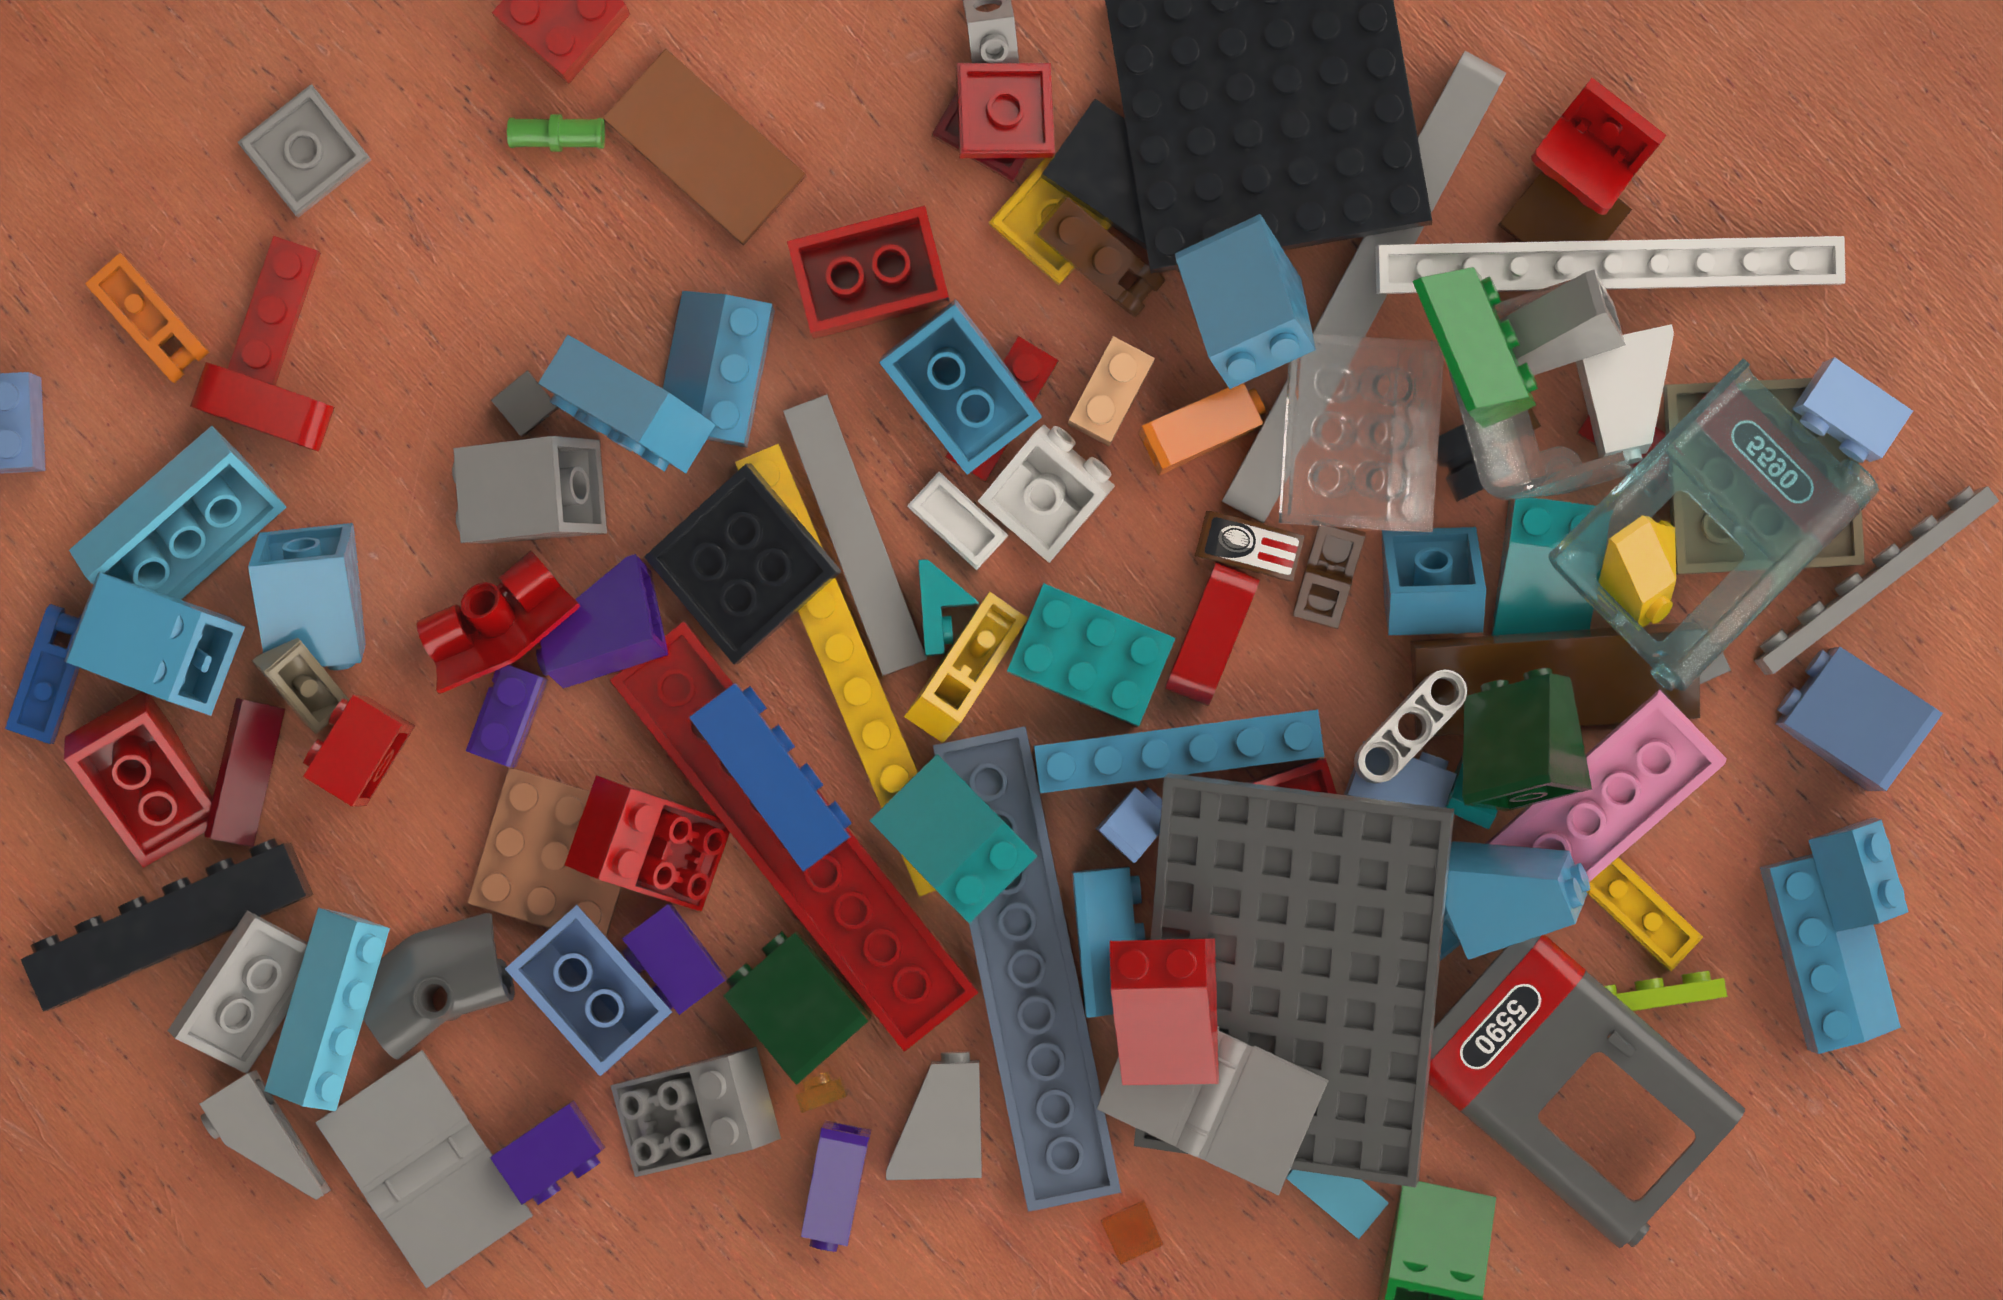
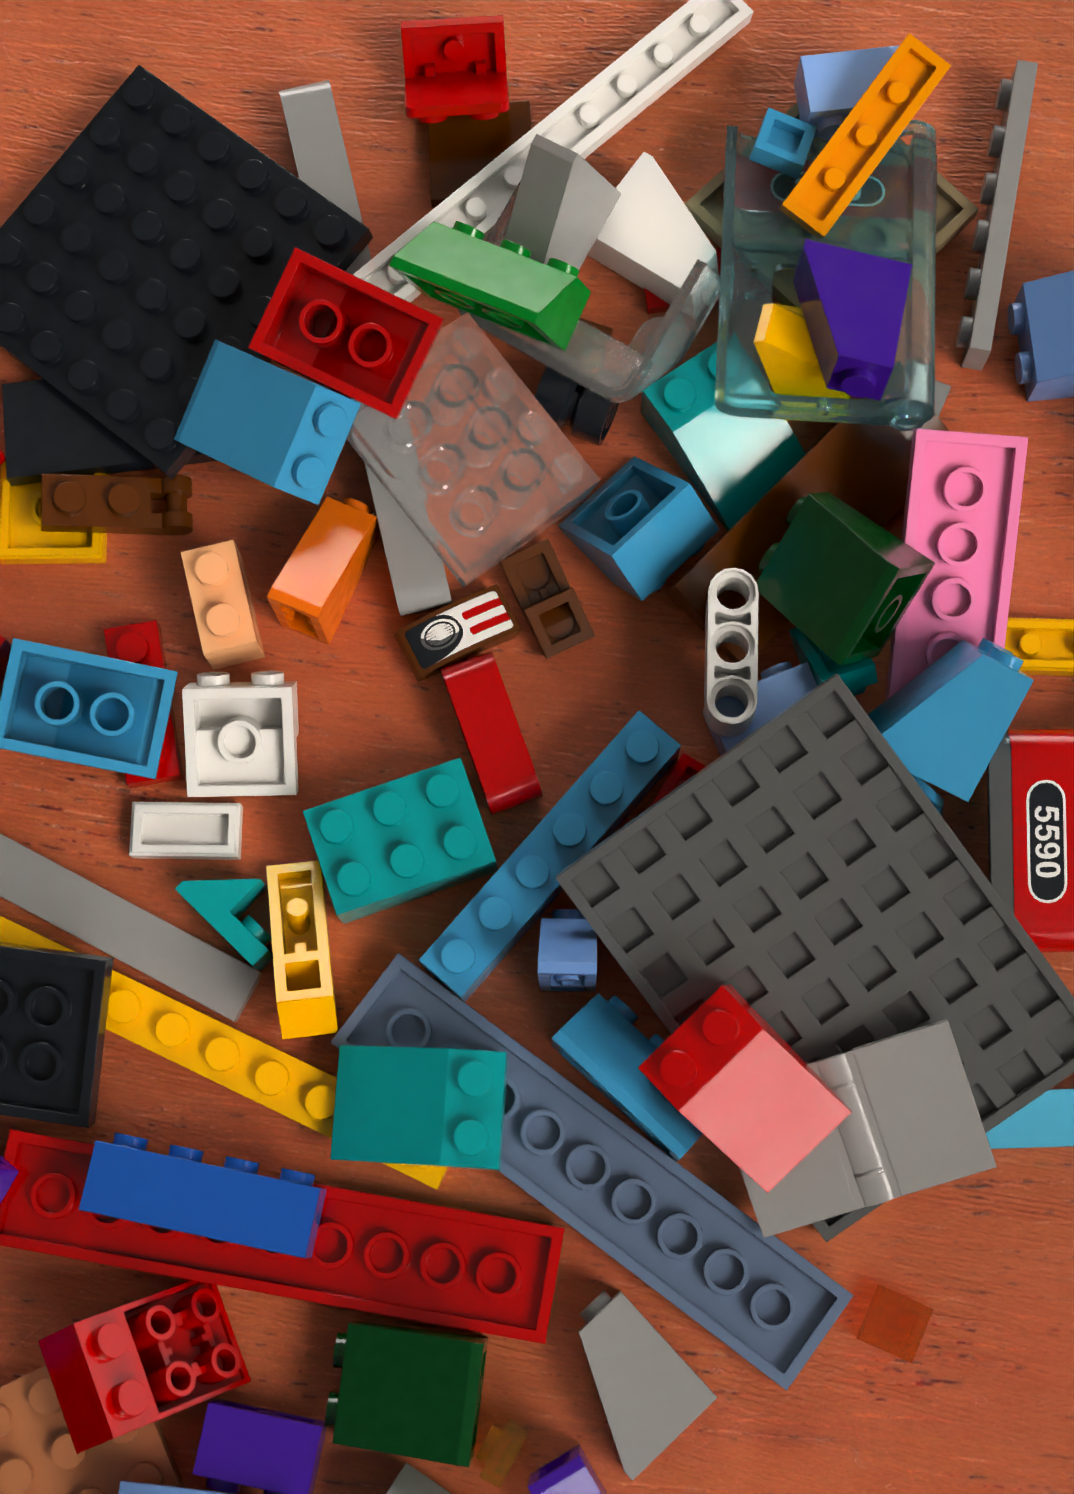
camera: 35 degrees left, 10 degrees down
(1348, 293) = (345, 333): none -> red slope
(1691, 578) = (852, 314): none -> dark purple slope
(1767, 407) = (782, 143): none -> dark azure plate
(1821, 456) = (865, 137): none -> light orange plate

